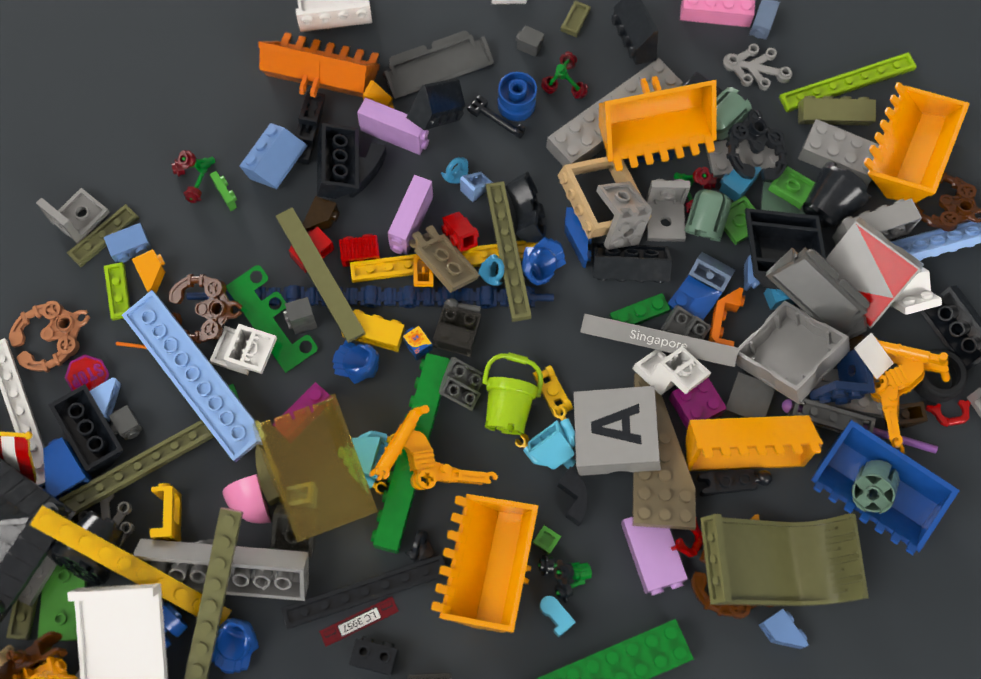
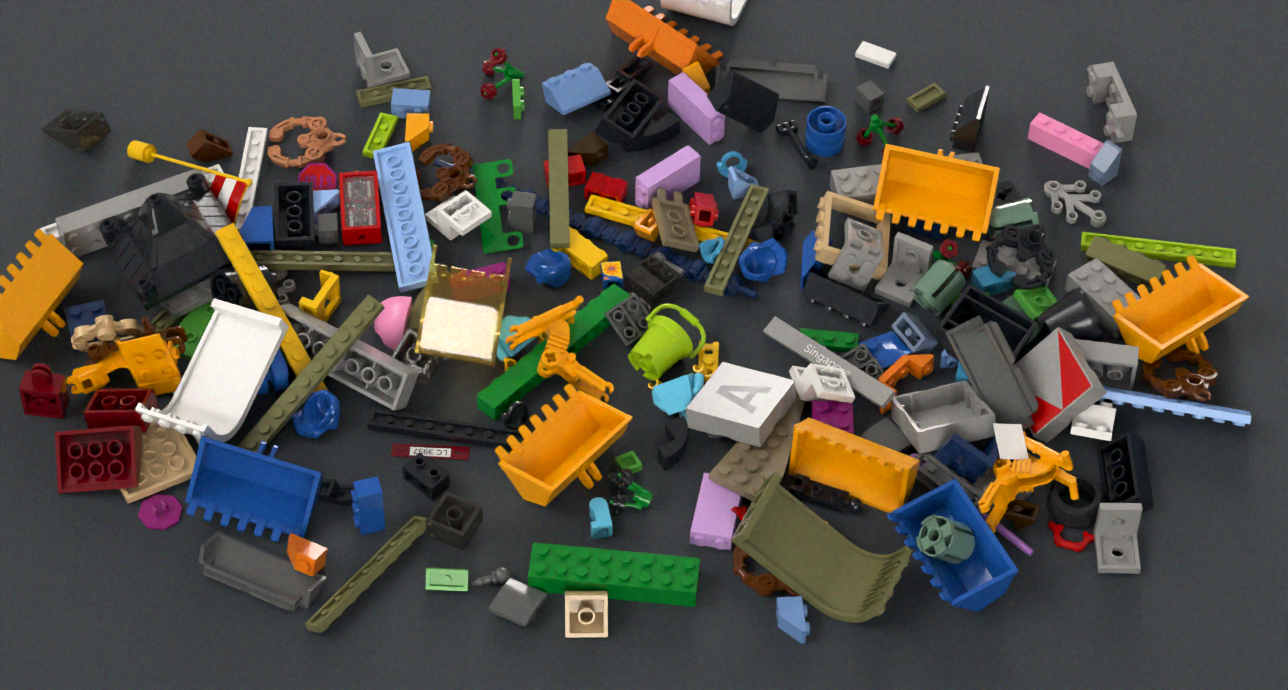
camera: 30 degrees right, 20 degrees down
(144, 386) = (360, 208): none -> brick

